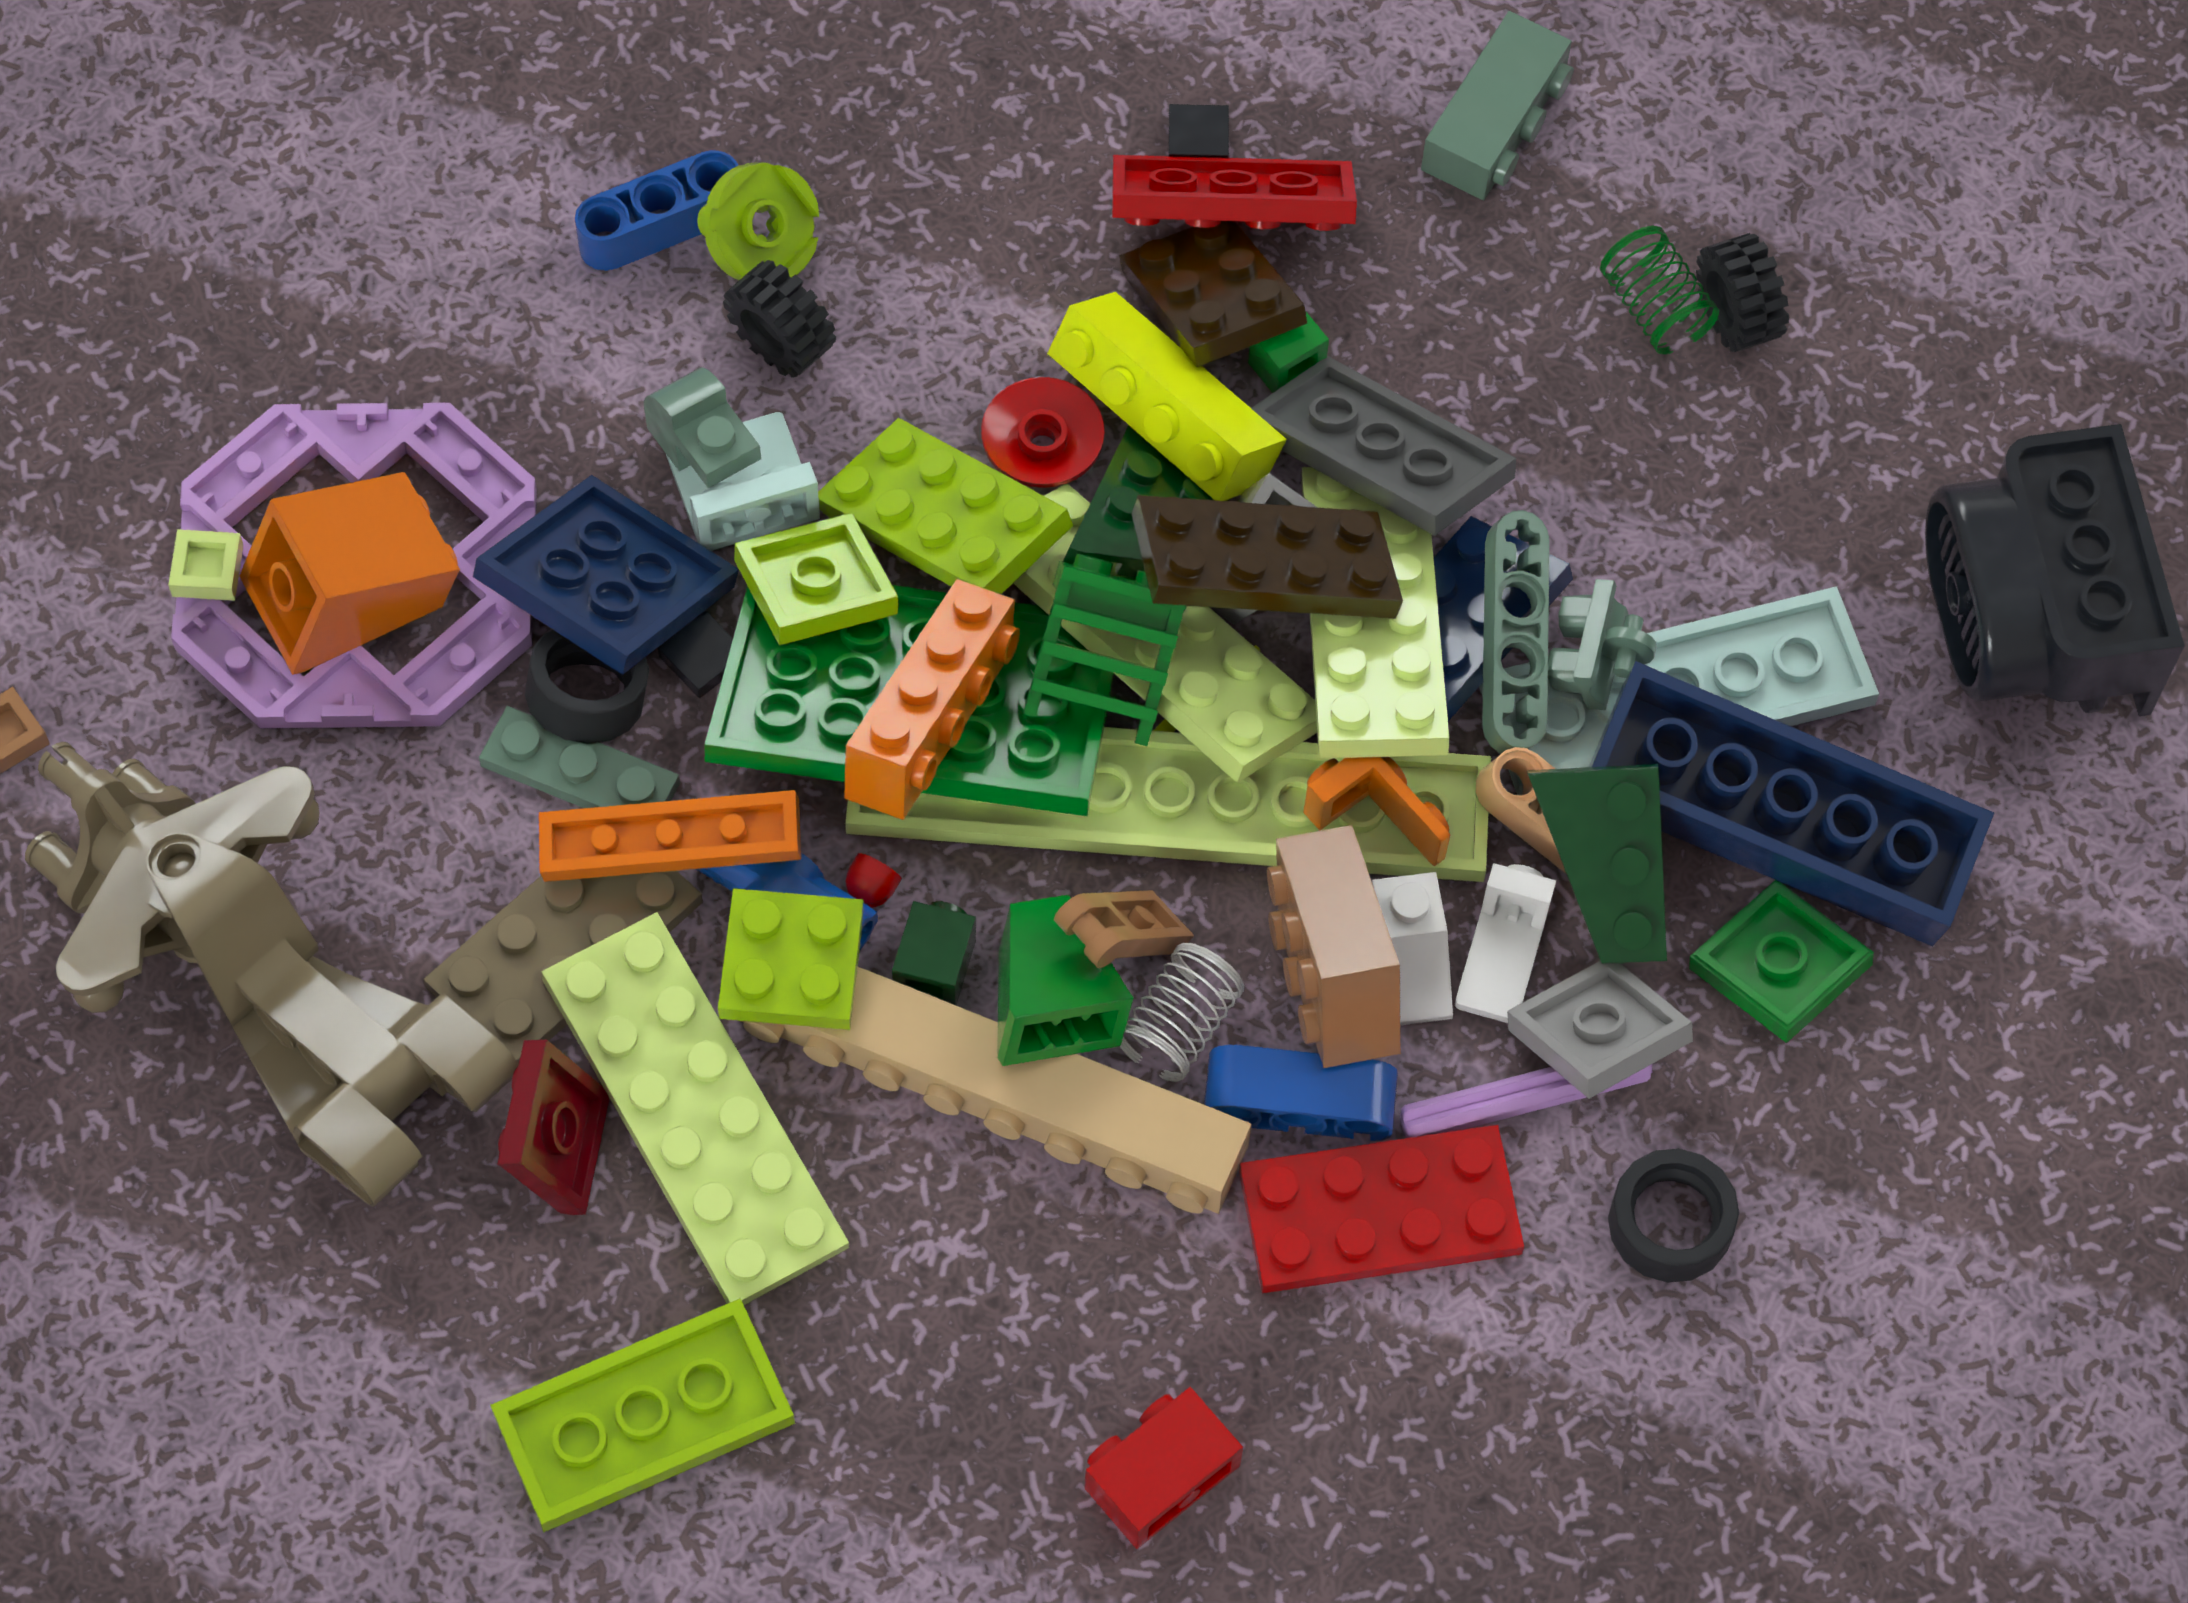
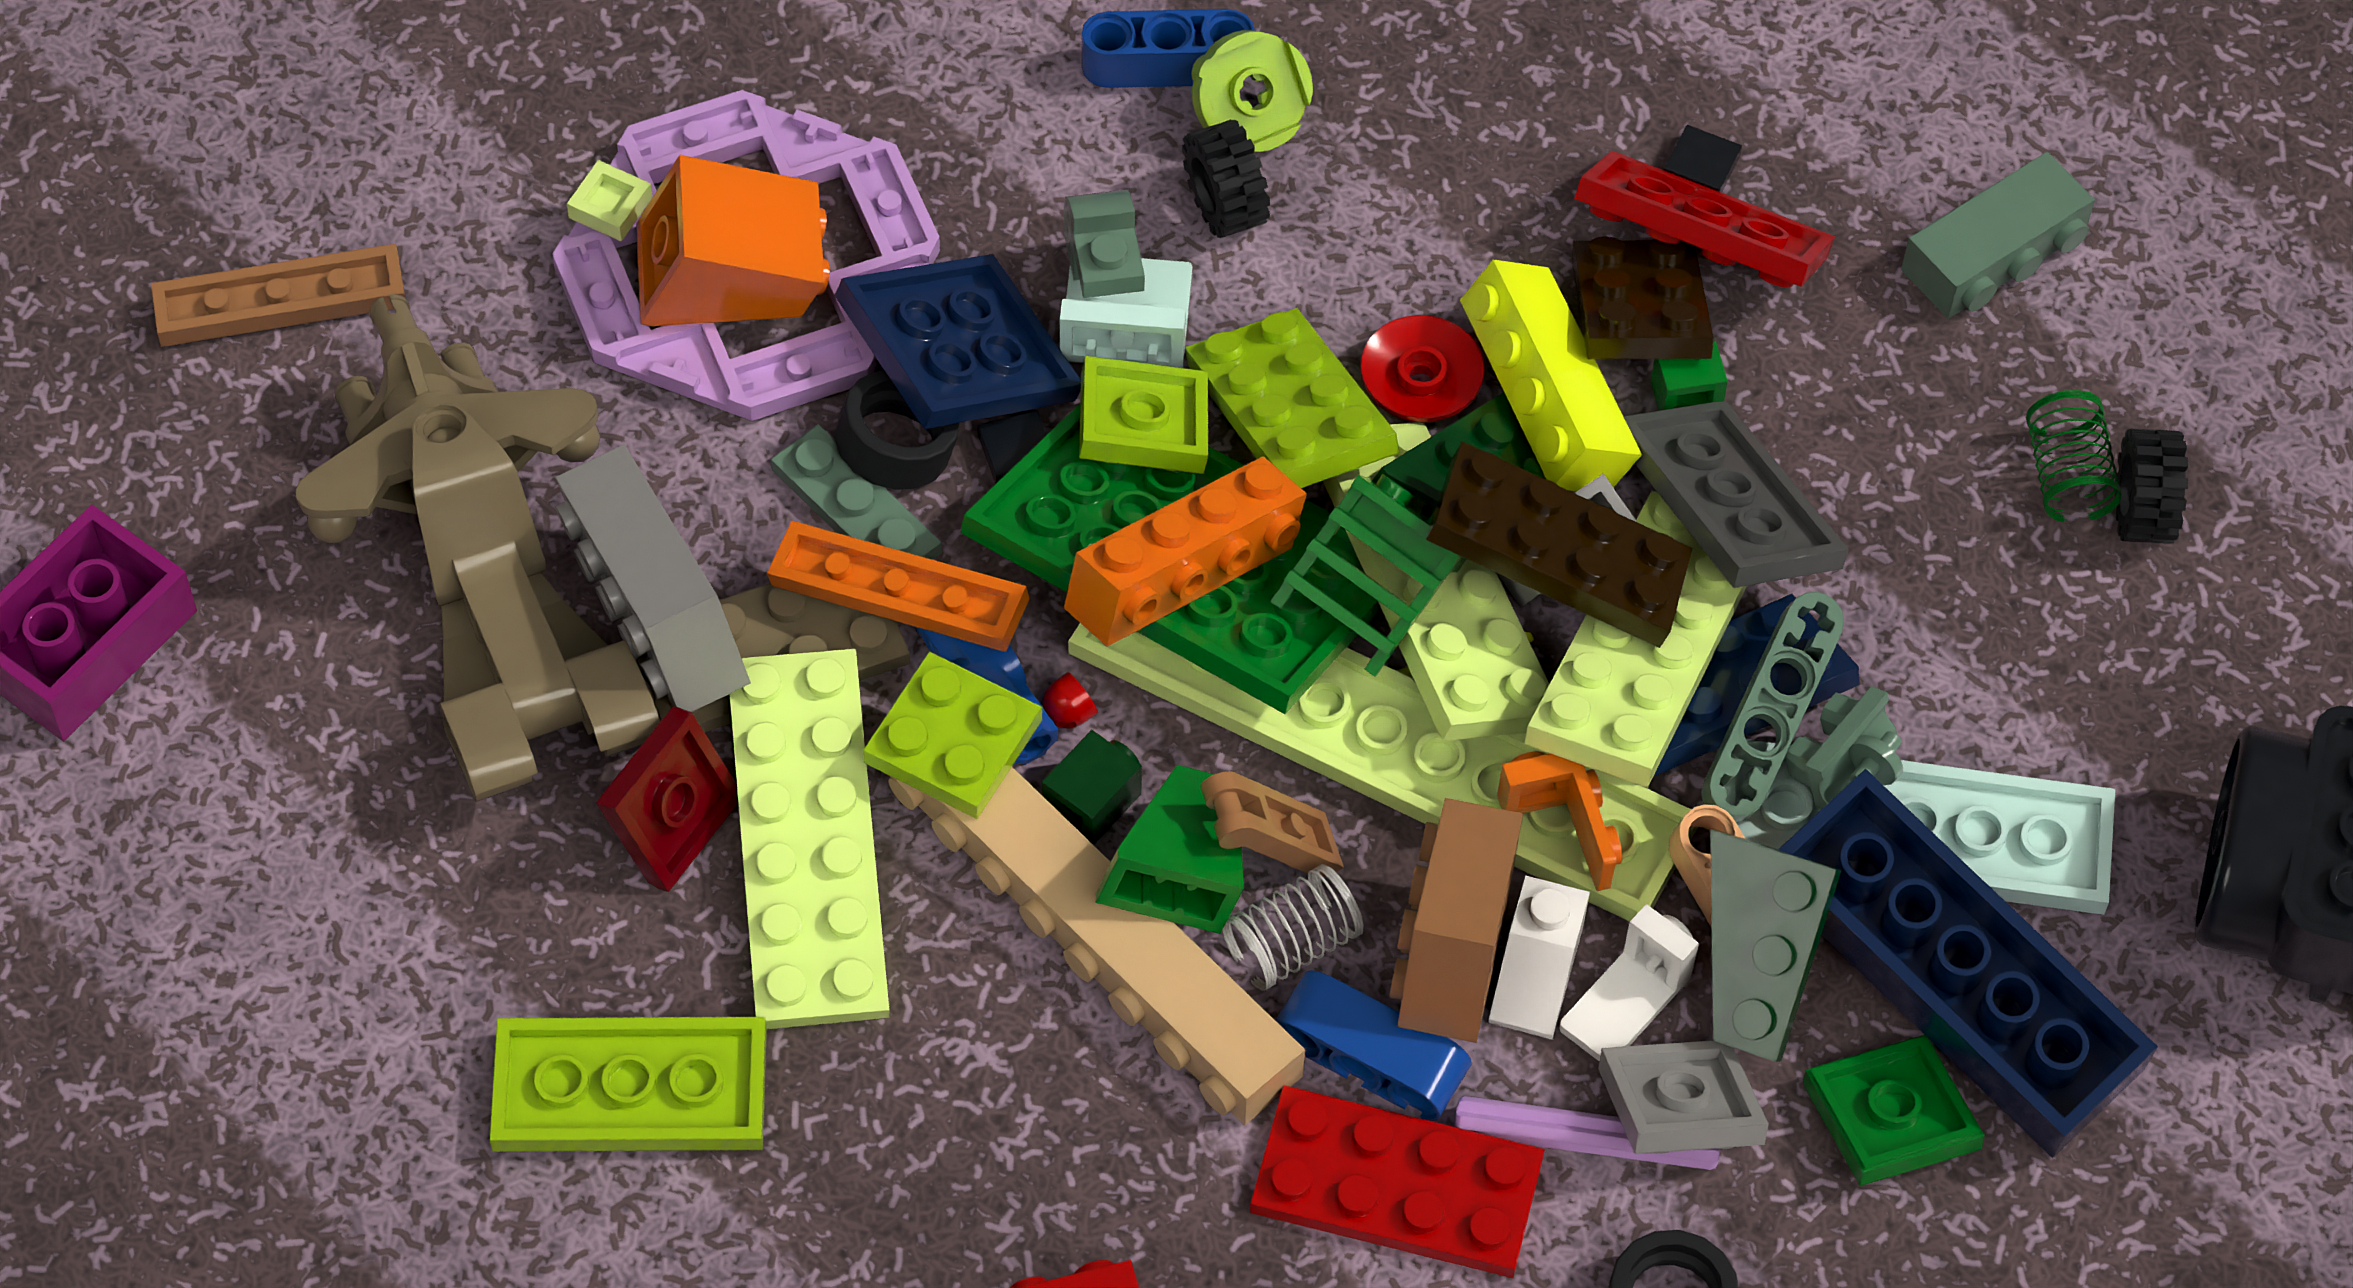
camera: 25 degrees right, 5 degrees down
(439, 926) = (649, 581): none -> light grey brick

